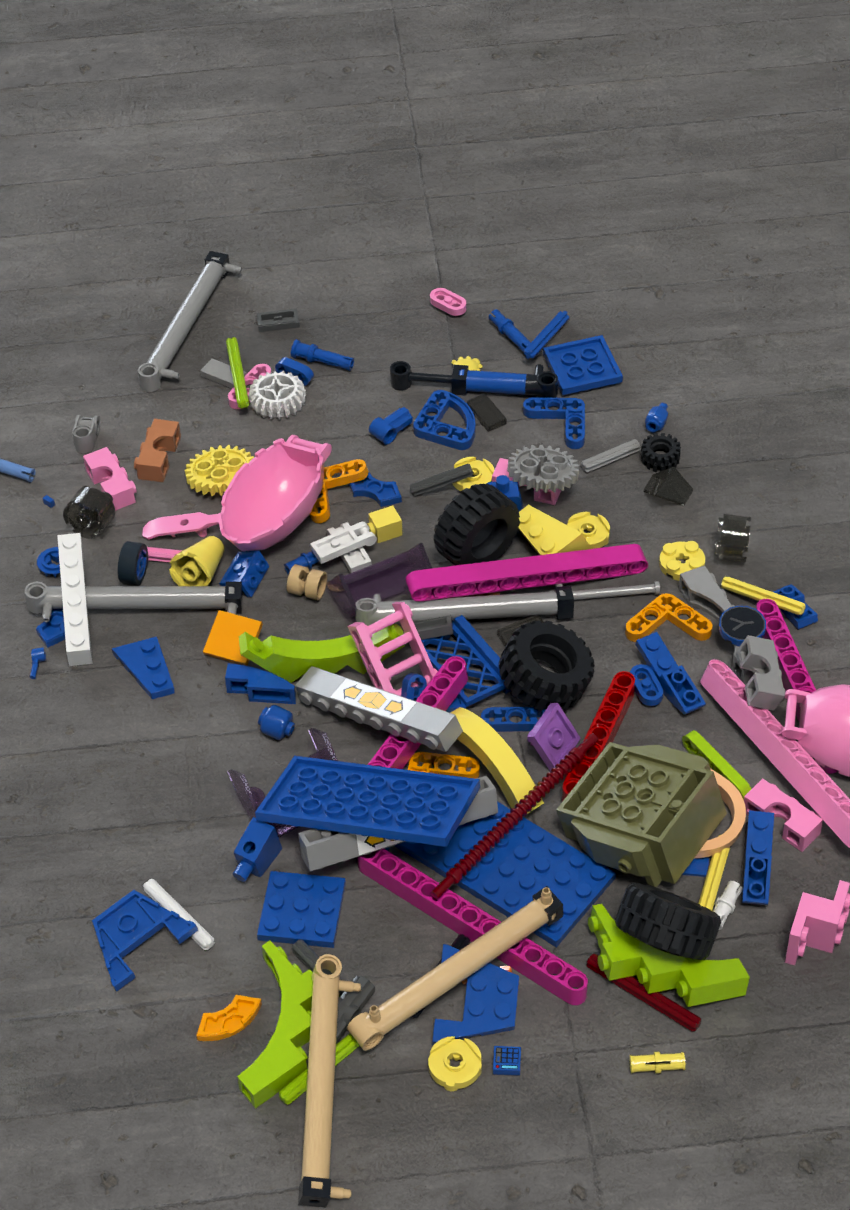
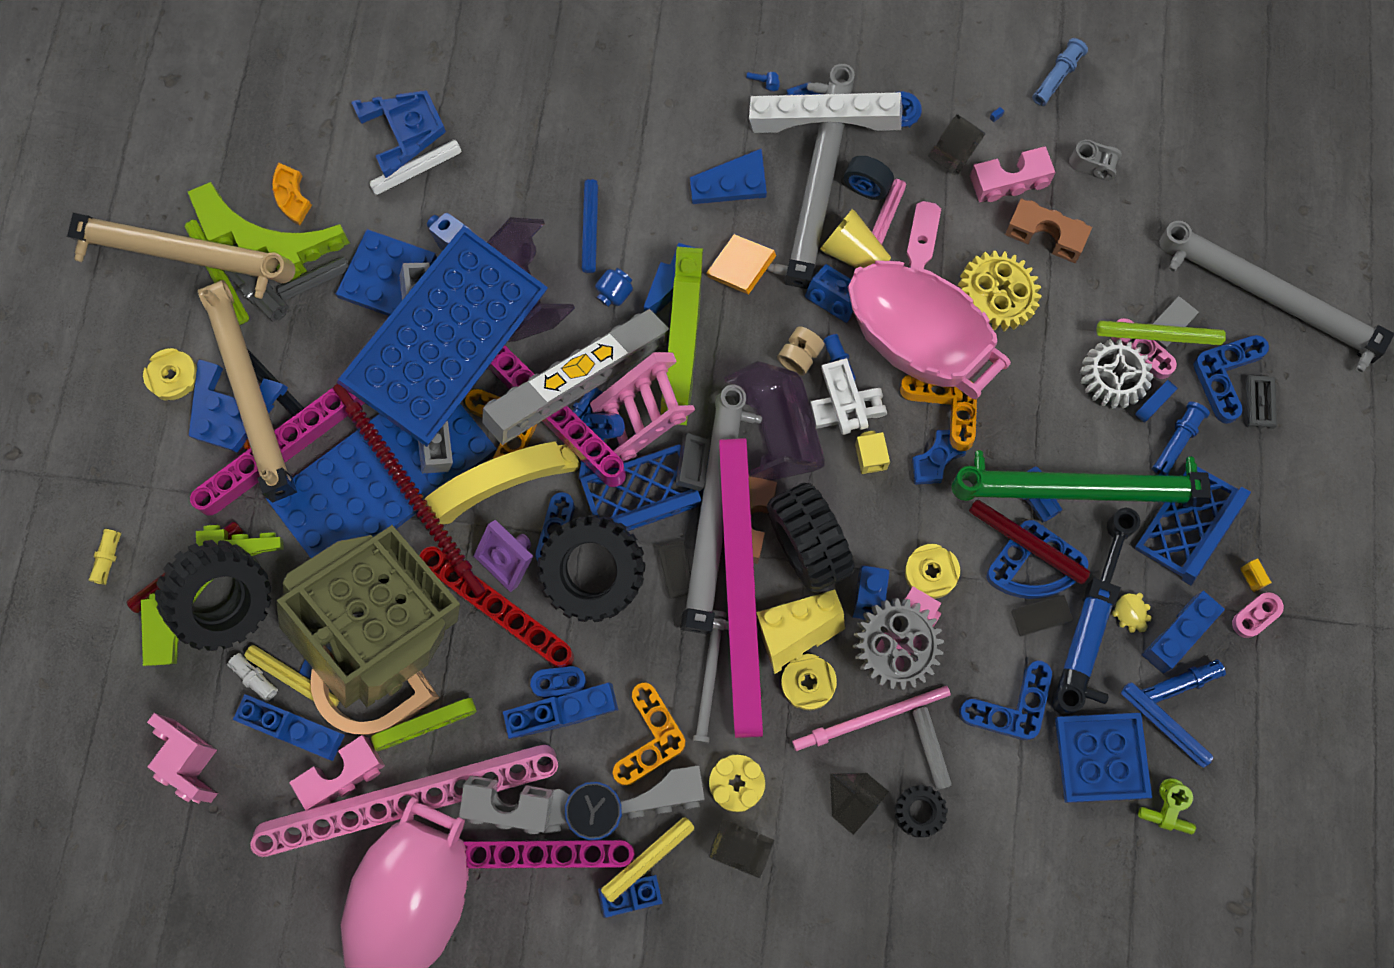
camera: 105 degrees right, 25 degrees up
(214, 759) = (589, 226): none -> blue axle
(257, 348) = (1220, 366): none -> blue beam
(382, 393) = (1190, 490): none -> green piece
(393, 329) = (1209, 539): none -> blue fence
(418, 304) = (1255, 575): none -> yellow tile
(432, 420) = (1029, 541): none -> dark red axle
(441, 479) = (926, 529): dark grey axle -> none
(489, 337) = (1183, 632): none -> blue arch
(506, 1060) = (159, 422): blue tile -> none
(603, 326) = (1172, 805): none -> lime piece
(624, 516) = (821, 736): none -> bright pink bar
(657, 418) = (985, 826): blue plant -> none

